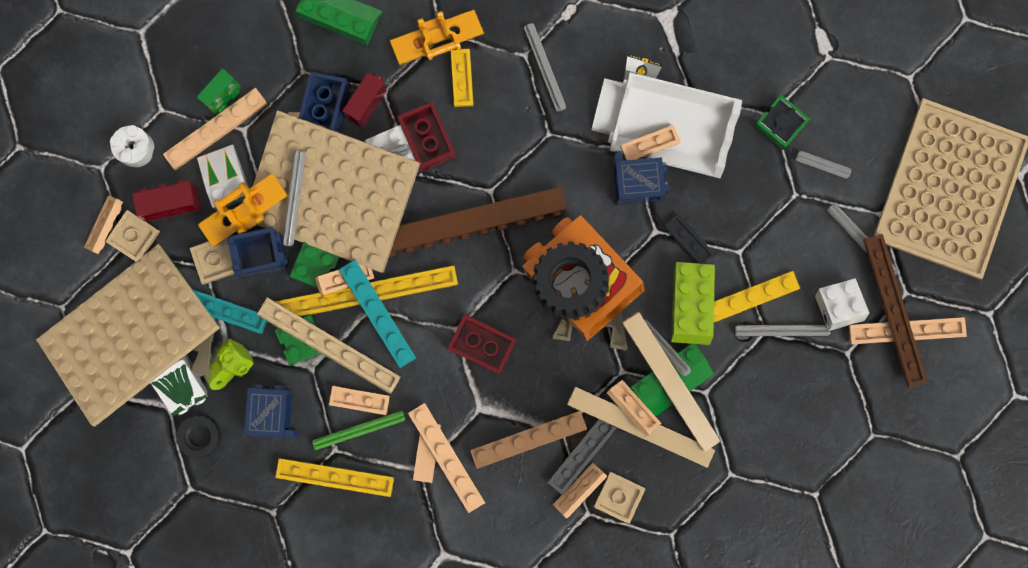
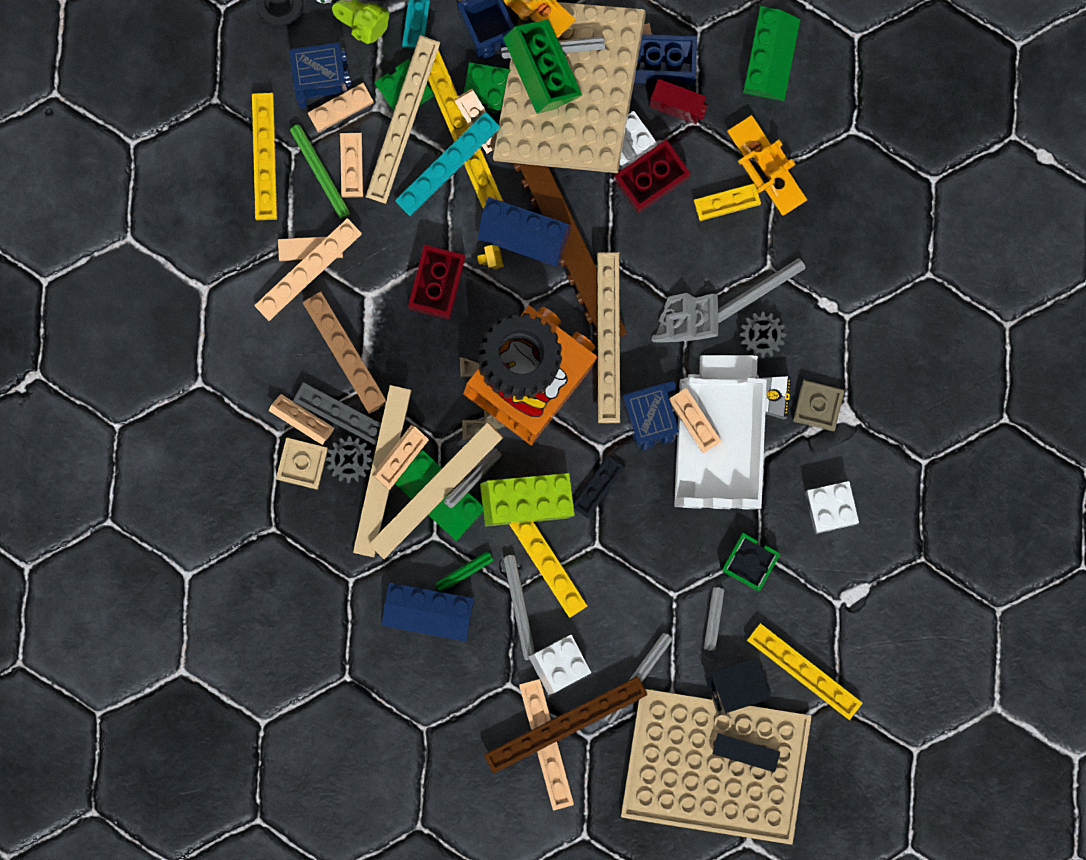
camera: 80 degrees right, 0 degrees up
(305, 400) = (340, 107): none -> light nougat plate
(309, 210) = (542, 66): none -> green slope
(453, 258) = (523, 231): none -> dark blue slope
(468, 292) = (491, 257): none -> yellow tile
(558, 132) = (688, 318): none -> light grey slope
(563, 203) = (608, 338): none -> tan tile
(581, 64) = (769, 342): none -> dark grey gear
(632, 449) = (356, 452): none -> dark grey gear
(655, 37) = (818, 405): none -> dark tan plate
(742, 372) = (464, 571): none -> green axle
(747, 43) = (831, 507): none -> white brick
(771, 411) = (427, 612): none -> dark blue slope
(883, 96) = (804, 671): none -> yellow plate
(889, 154) = (738, 686): none -> black panel
(946, 159) = (746, 752): none -> black tile

